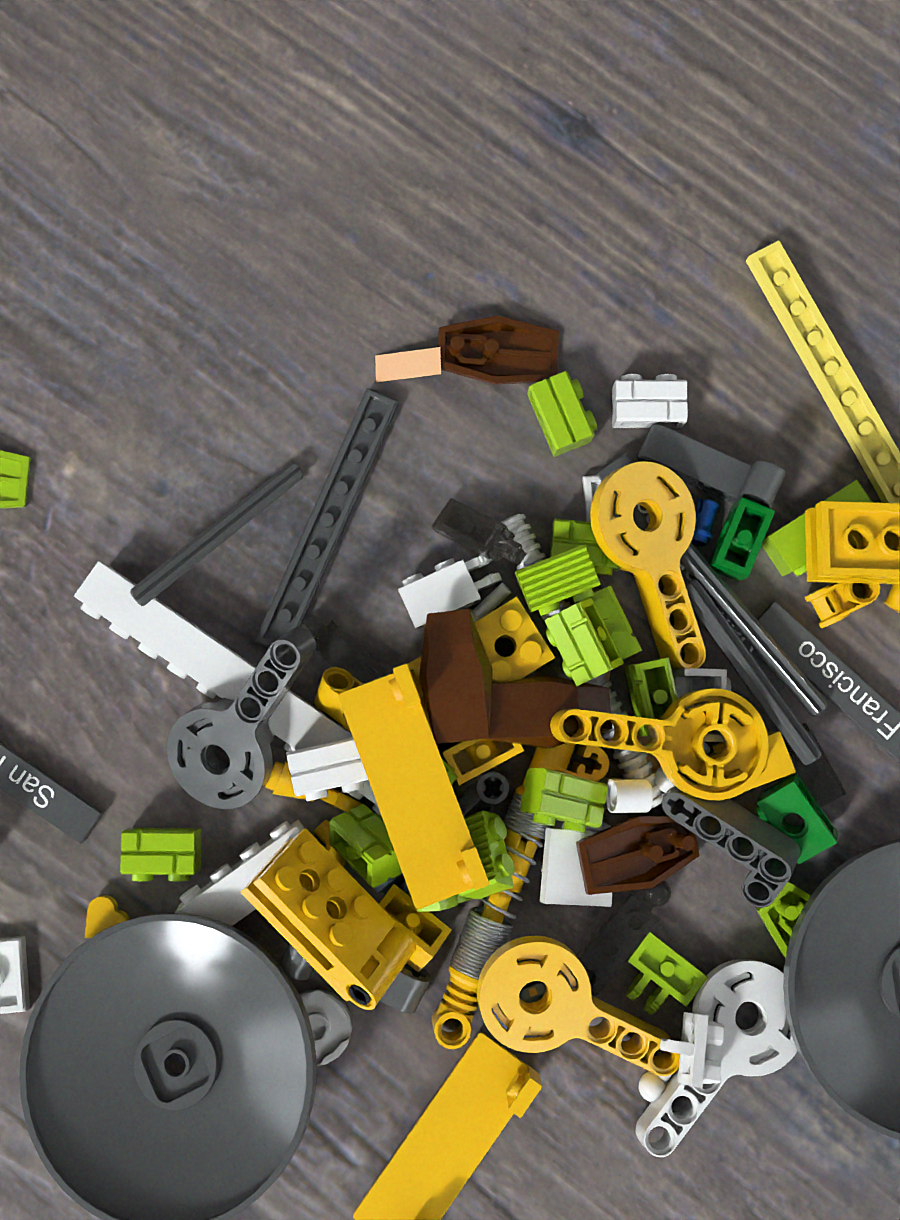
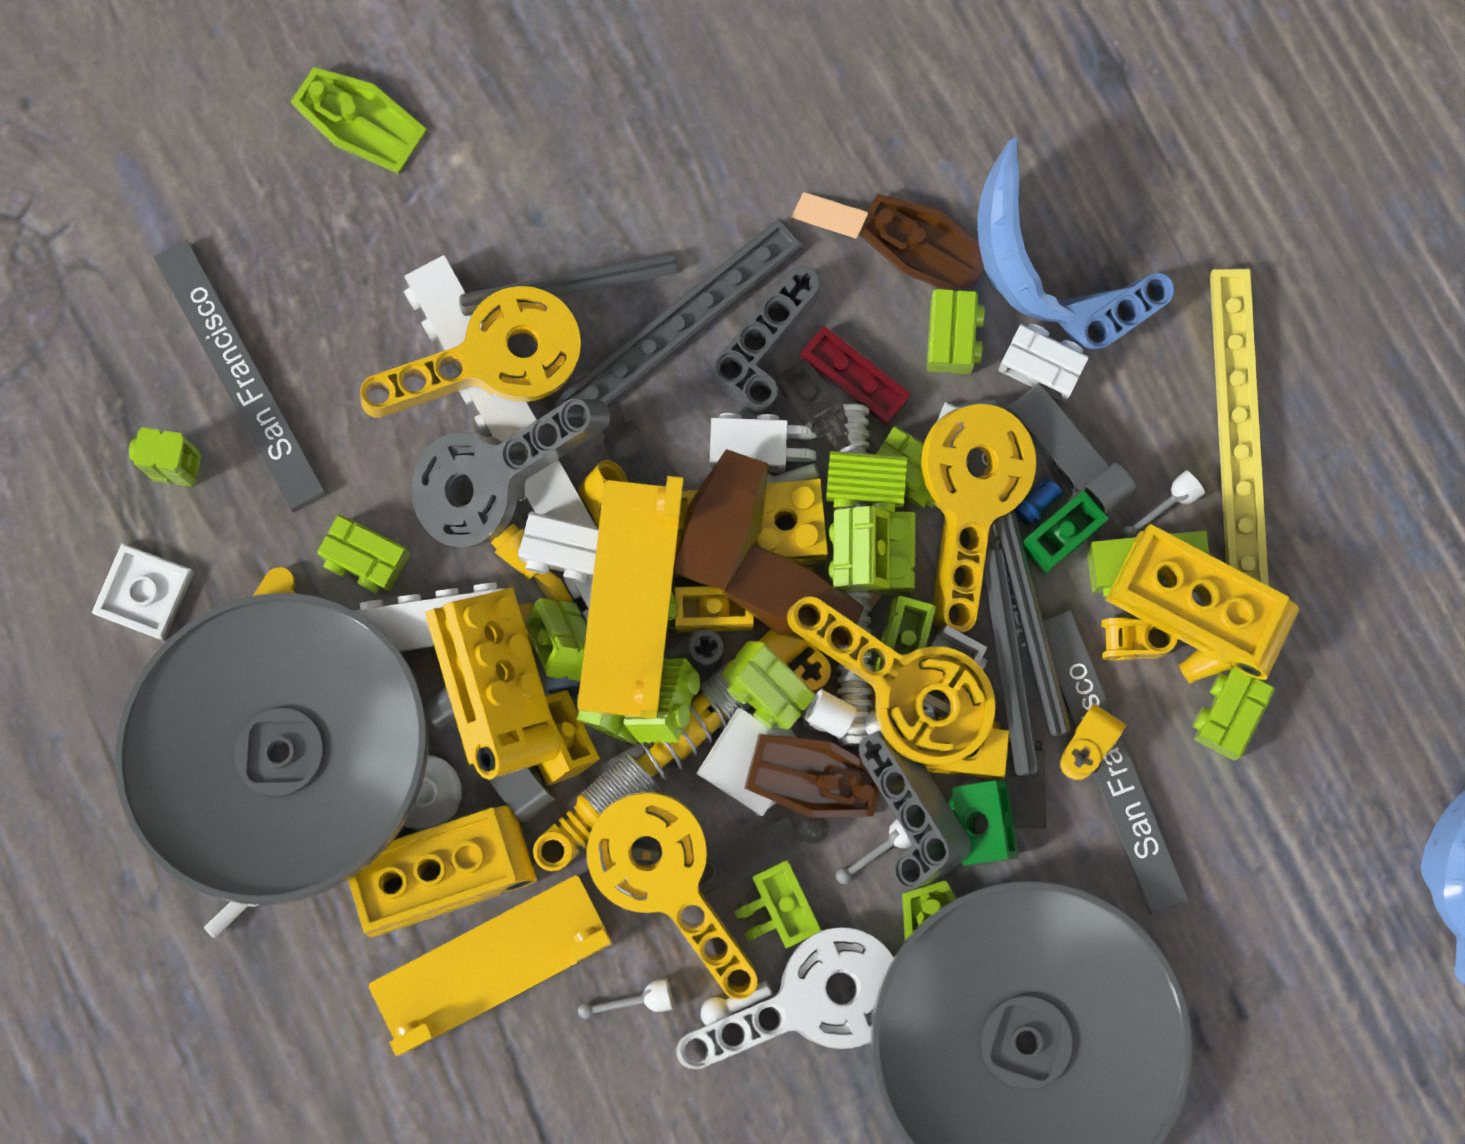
camera: 25 degrees right, 5 degrees down
(179, 633) = (486, 355): none -> yellow beam
(390, 1071) = (477, 861): none -> yellow hinge
(411, 490) = (772, 334): none -> dark grey beam
(498, 490) = (855, 375): none -> dark red plate
(591, 339) = (1019, 283): none -> medium blue piece
(598, 1101) = (656, 997): none -> hinge
(696, 1033) = (783, 968): white hips -> none
(728, 865) = (897, 837): none -> light grey hinge
(816, 452) = (1184, 490): none -> hinge
(851, 700) = (1094, 739): none -> yellow piece

